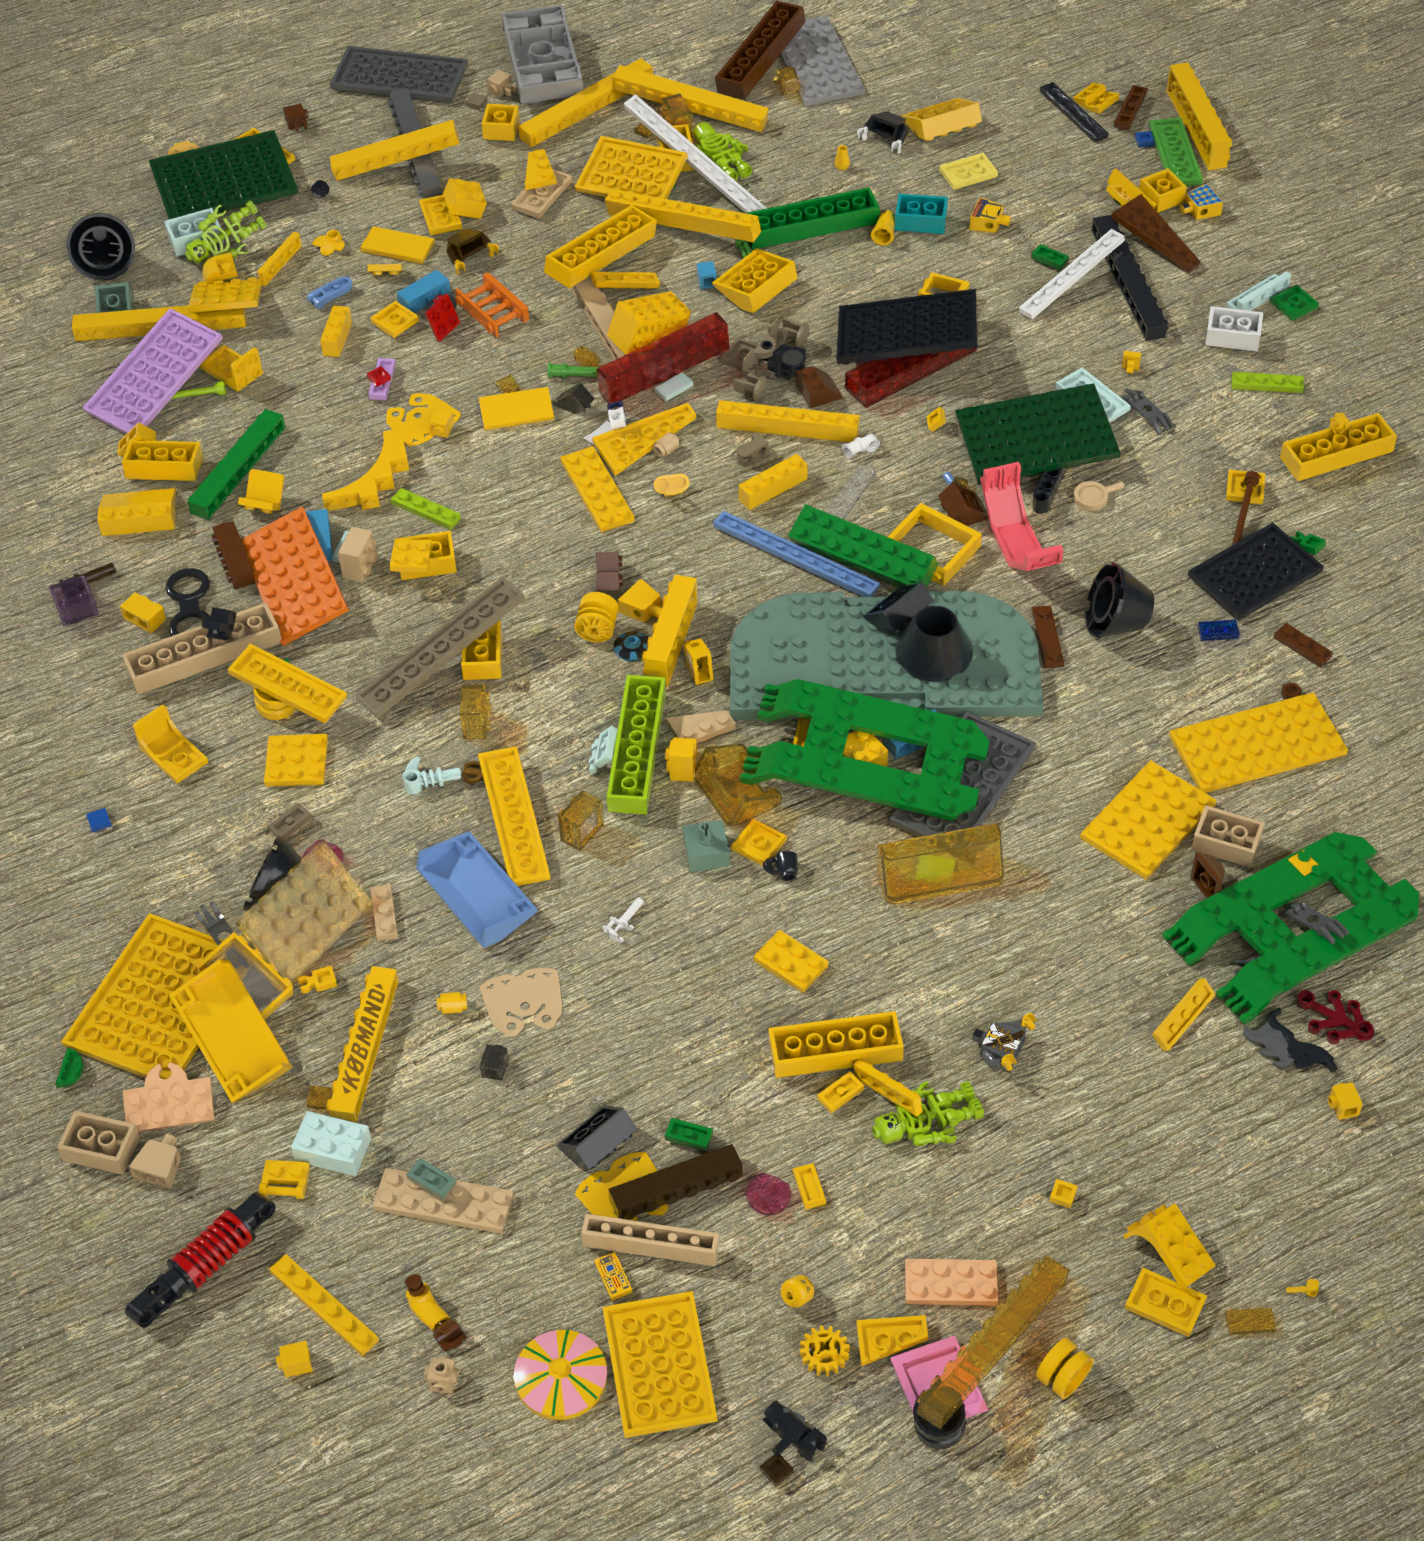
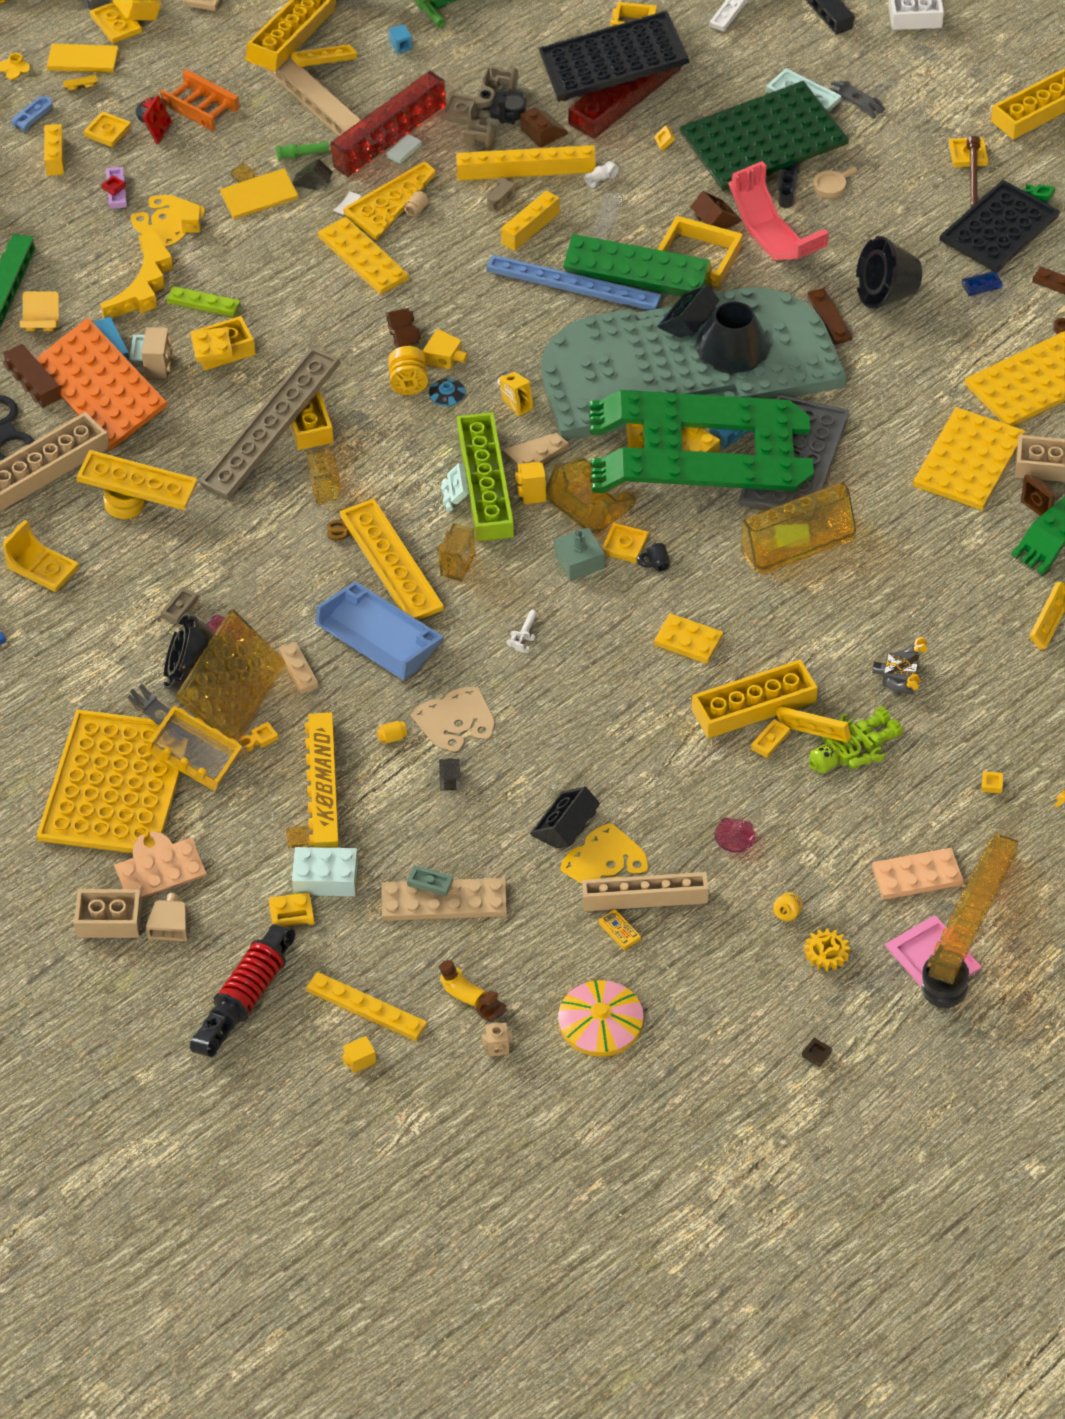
camera: 15 degrees left, 0 degrees up
(70, 1070) = (54, 858): green plate -> none
(220, 624) = (51, 438): black brick -> none
(230, 1030) = (197, 793): yellow slope -> none
(296, 760) = (163, 550): yellow plate -> none
(415, 780) = (285, 545): light aqua piece -> none
(423, 291) = (128, 97): dark azure brick -> none
(466, 244) = (154, 46): dark brown torso -> none
(586, 357) = (310, 134): clear yellow brick -> none
(616, 416) = (360, 185): white leg -> none
(646, 320) = (364, 90): yellow brick -> none
(659, 1364) = (685, 991): yellow plate -> none
(671, 484) = (434, 239): yellow bracket -> none
(671, 628) = (481, 367): yellow brick -> none
(676, 1182) = (650, 840): dark brown brick -> none
(689, 1134) = (647, 800): green plate -> none
(756, 279) = (451, 35): yellow slope -> none
(793, 1431) = (822, 1019): black piece -> none
(809, 1186) = (768, 821): yellow tile -> none
(888, 1336) = (878, 927): yellow wing -> none
(949, 479) = (692, 189): arm -> none
(1064, 1368) = (1039, 918): yellow wheel -> none
(1131, 361) = (829, 55): yellow tile -> none
(1267, 382) = (959, 54): lime plate -> none
(1339, 423) = (1039, 79): yellow plant -> none

